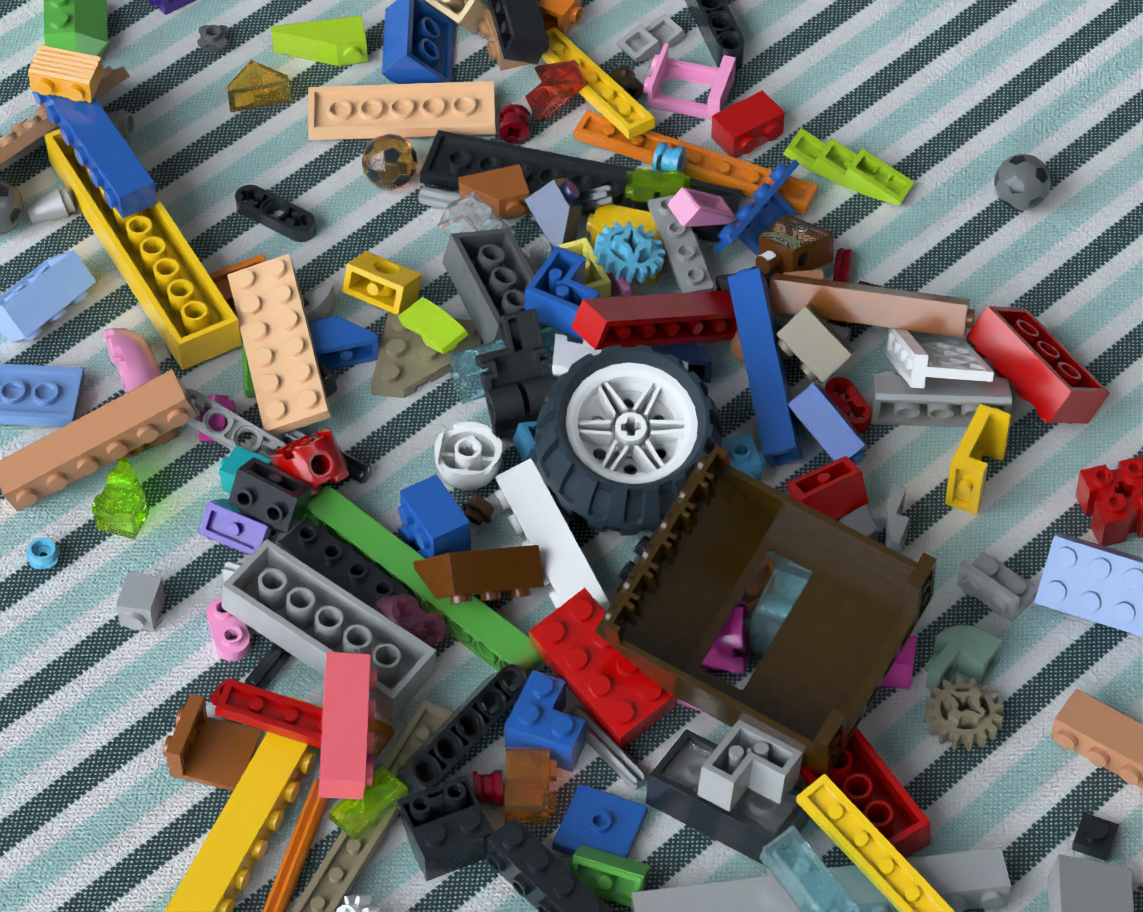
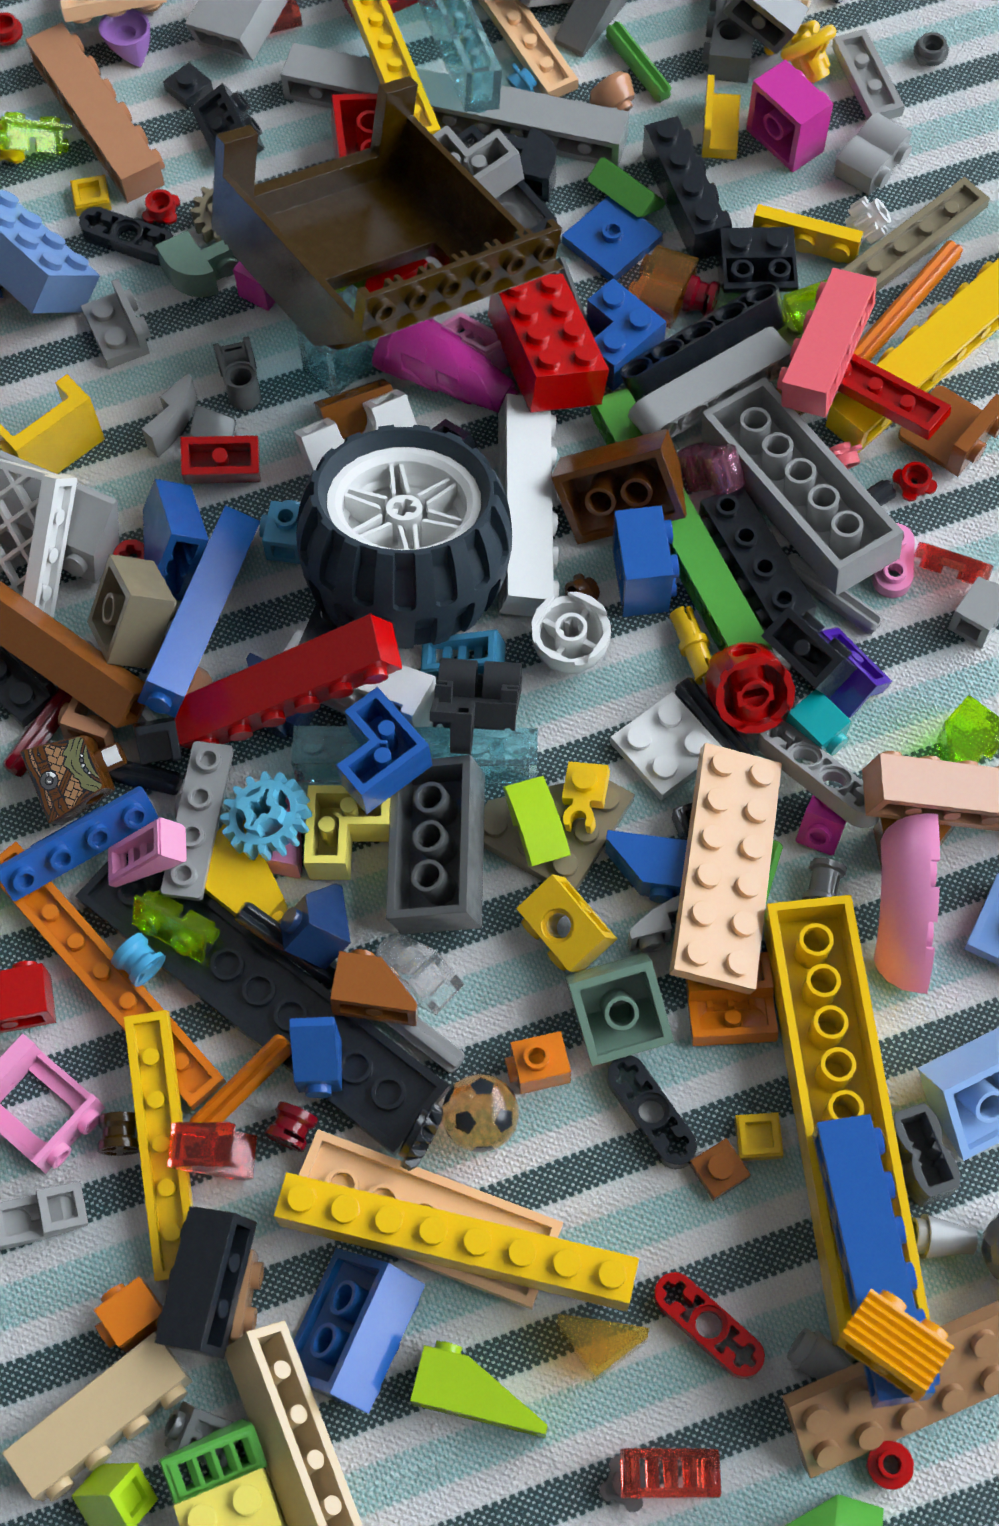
camera: 155 degrees left, 15 degrees up
(78, 232) = (928, 1165): none -> dark grey brick
(172, 47) = (699, 1473): none -> clear red slope
(176, 635) = (935, 558): none -> clear red plate
(195, 225) = (758, 1136): none -> yellow tile
(202, 373) = (824, 878): none -> dark grey bush
(211, 128) = (741, 1340): none -> red beam
(215, 200) = (719, 1169): none -> dark orange plate
(303, 686) = (847, 454): none -> coral plate
(322, 249) = (619, 1008): none -> sand green slope
(363, 207) = (538, 1063): none -> orange brick
(365, 429) = (663, 745): none -> white plate
(369, 501) = (692, 642): none -> yellow pin
(370, 86) = (457, 1241): none -> yellow brick
(407, 365) = (584, 789): none -> yellow plate
(415, 884) = (813, 235): none -> yellow plate
(421, 128) = (420, 1136): none -> black gear
(436, 683) = (683, 400): none -> light grey beam
(513, 141) = (316, 1056): none -> blue slope
(559, 130) = (245, 1081): none -> orange axle
(706, 864) = (538, 162): none -> black brick
(1024, 802) = (223, 112): none -> black bracket
(1033, 678) = (118, 224): none -> black beam
(1037, 696) = (161, 207): none -> red plate
(1110, 692) = (90, 193): none -> yellow tile

